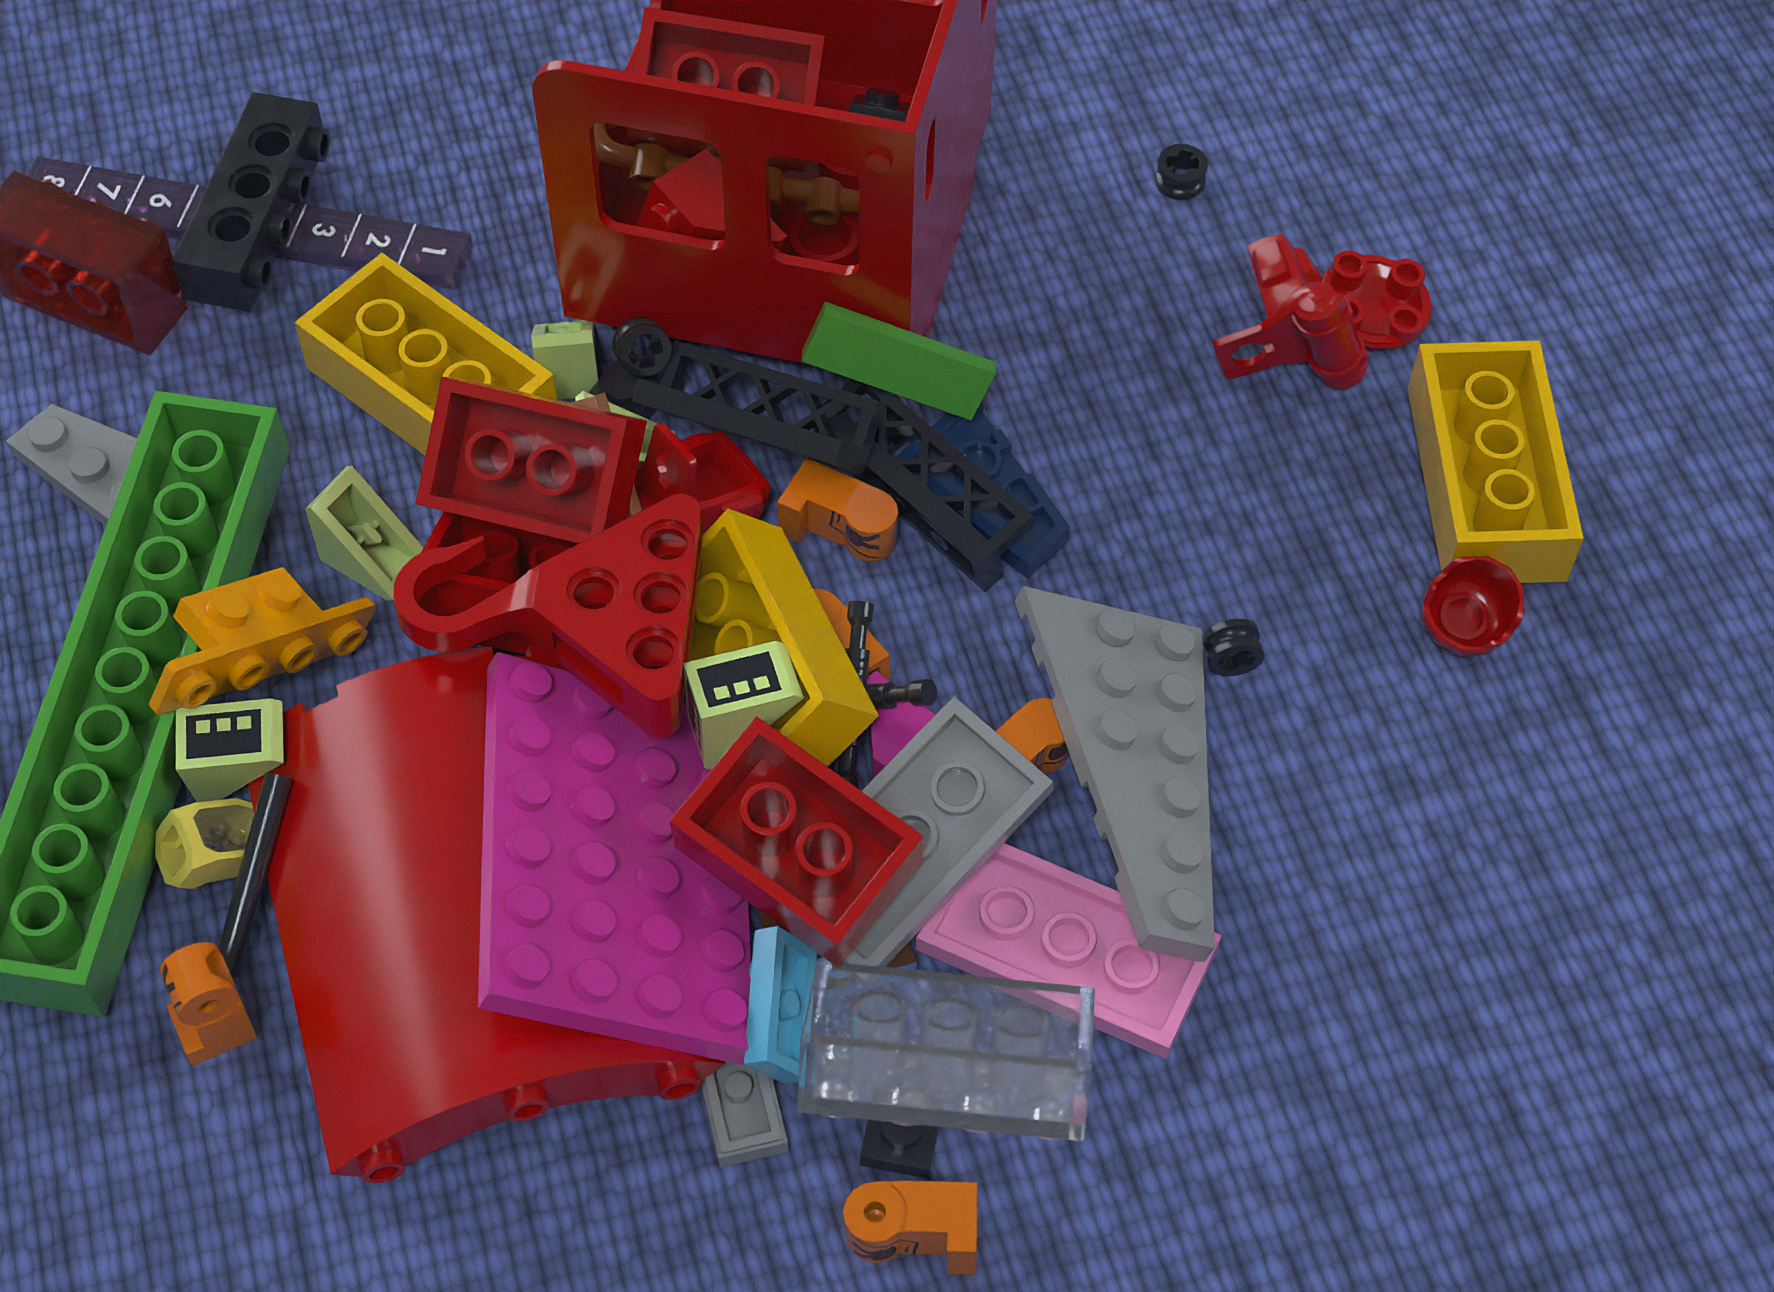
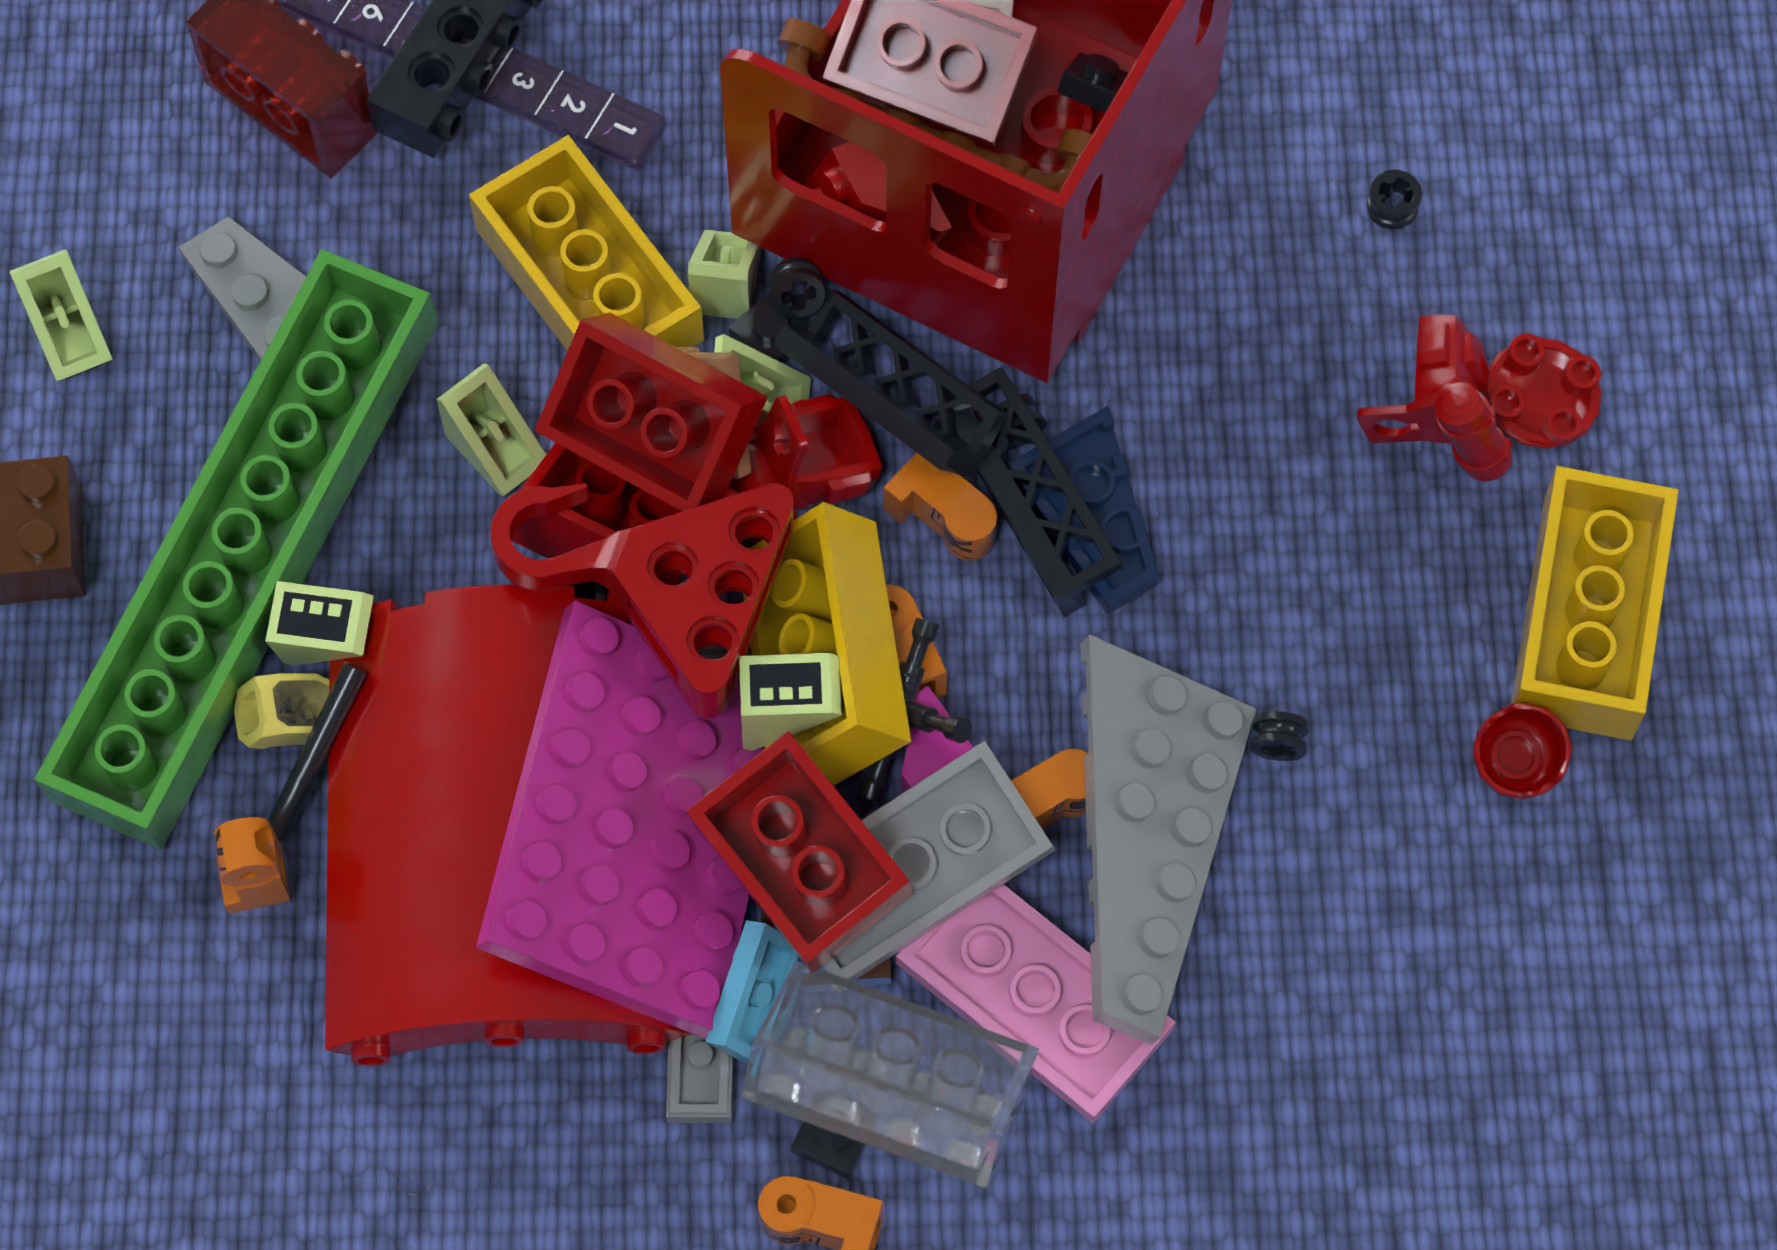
camera: 15 degrees right, 10 degrees up
(253, 634) = (363, 517): light orange bracket -> none
(898, 361) = (1034, 371): bright green tile -> none

